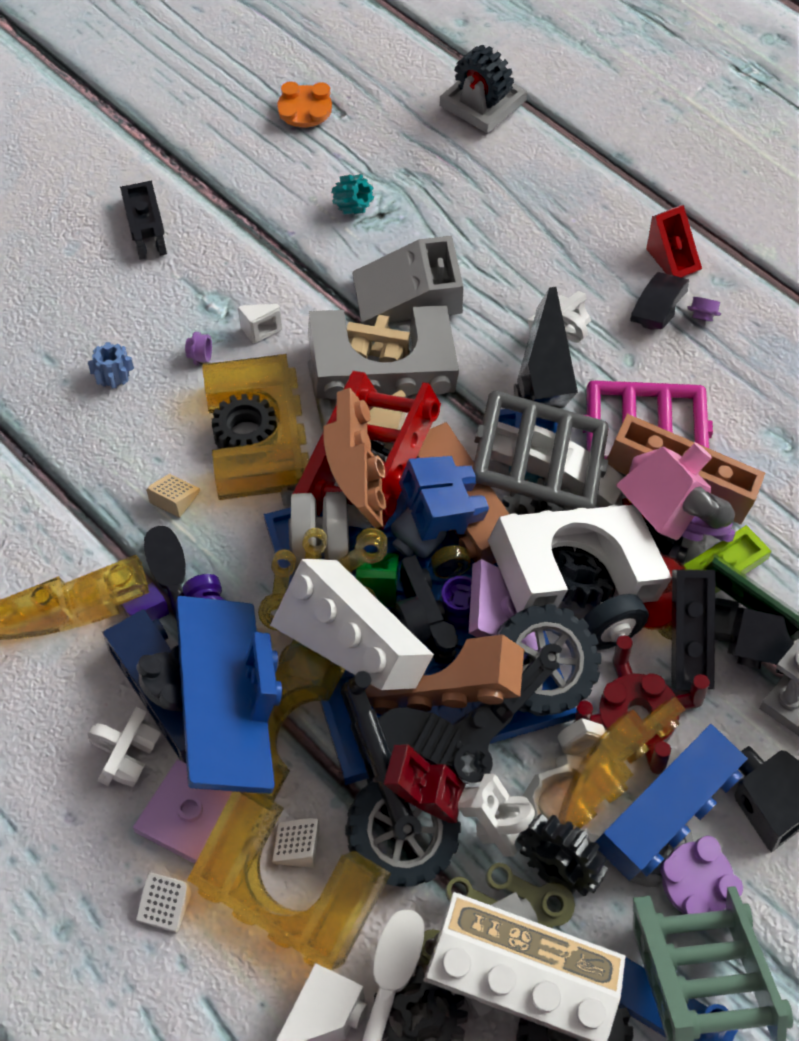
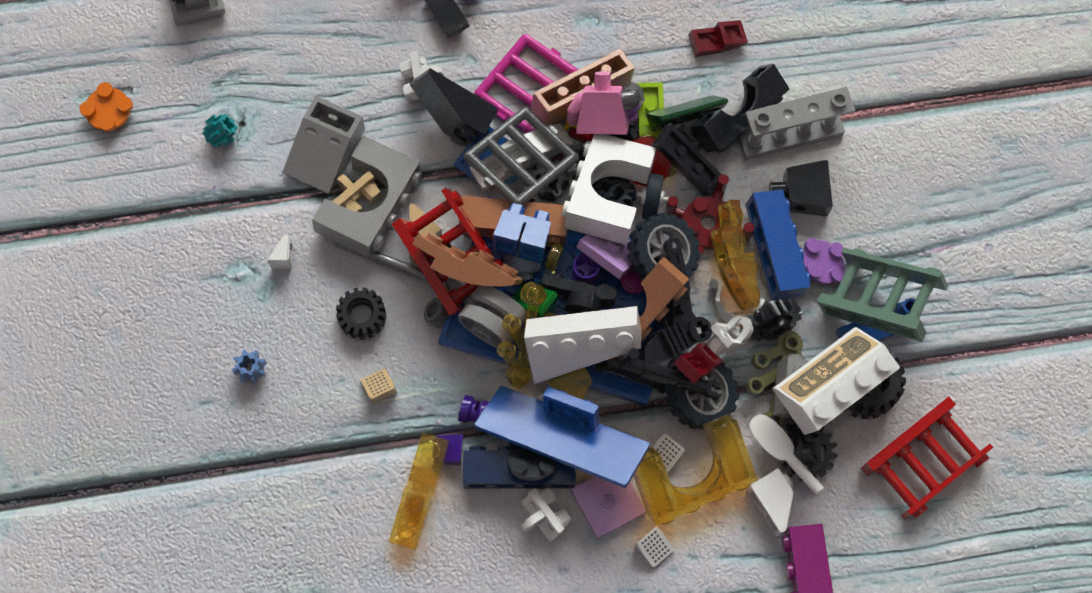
camera: 60 degrees left, 15 degrees up
(143, 216) = (130, 273): black hinge -> none
(166, 561) = (434, 420): black piece -> none
(199, 348) = (274, 304): medium lavender plate -> none
(277, 459) = (404, 305): clear yellow arch -> none
(580, 736) = (706, 263): white tile -> none

